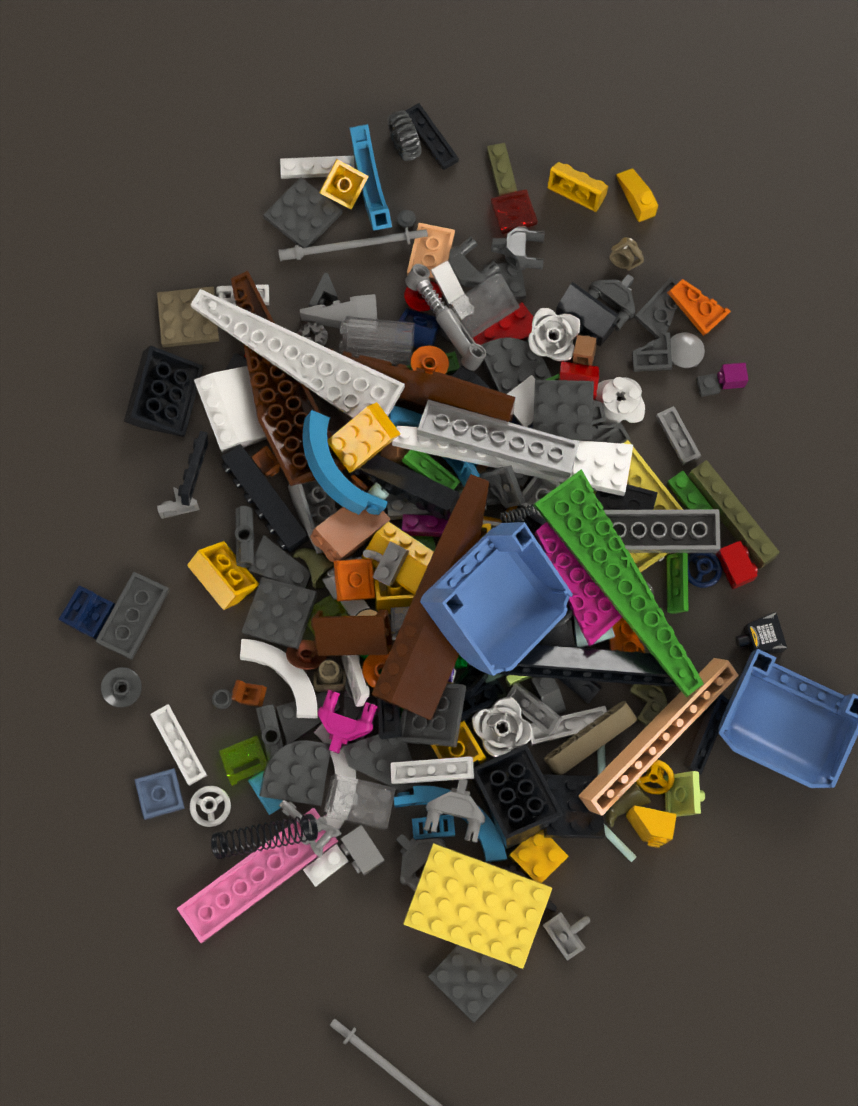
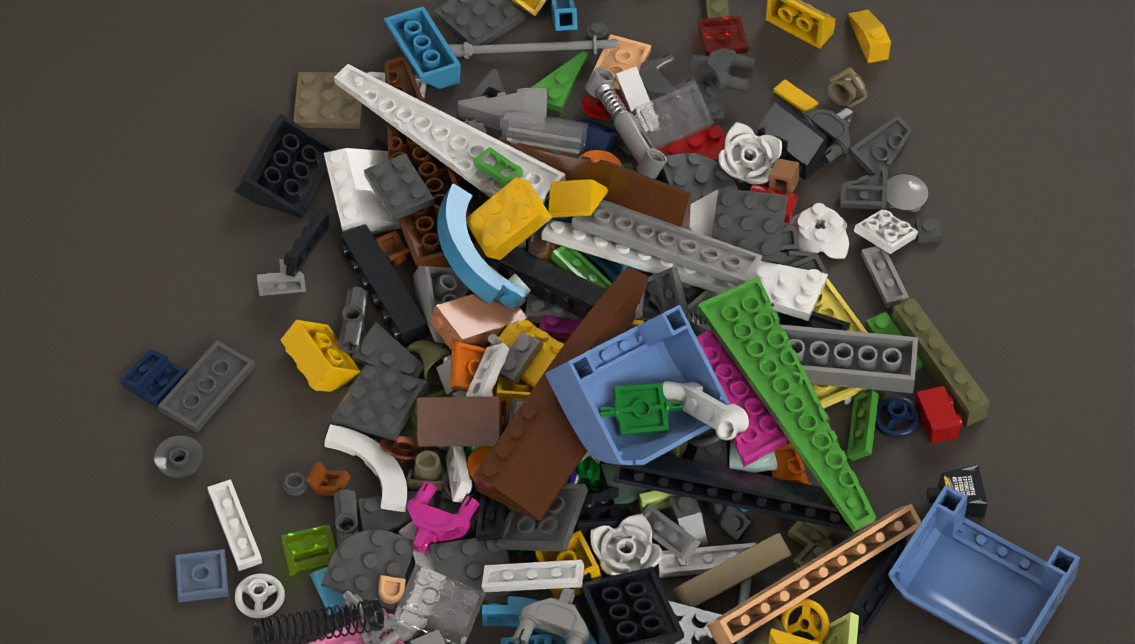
camera: 10 degrees right, 20 degrees down
(261, 258) = (425, 47): none -> dark azure slope
(264, 410) = (399, 187): none -> dark grey plate
(317, 792) = (391, 589): none -> light nougat tile
(347, 386) = (497, 166): none -> bright green piece
(366, 587) = (488, 371): none -> white plate
(381, 277) = (562, 81): none -> bright green wing
(416, 409) = (575, 197): none -> yellow slope
(500, 612) = (640, 409): none -> green plate
(575, 617) = (726, 419): none -> white plate
(582, 265) = (795, 96): none -> yellow piece
(674, 393) = (886, 231): none -> white tile
(700, 309) = (927, 152): orange wing -> none
(733, 376) = (958, 222): magenta brick -> none

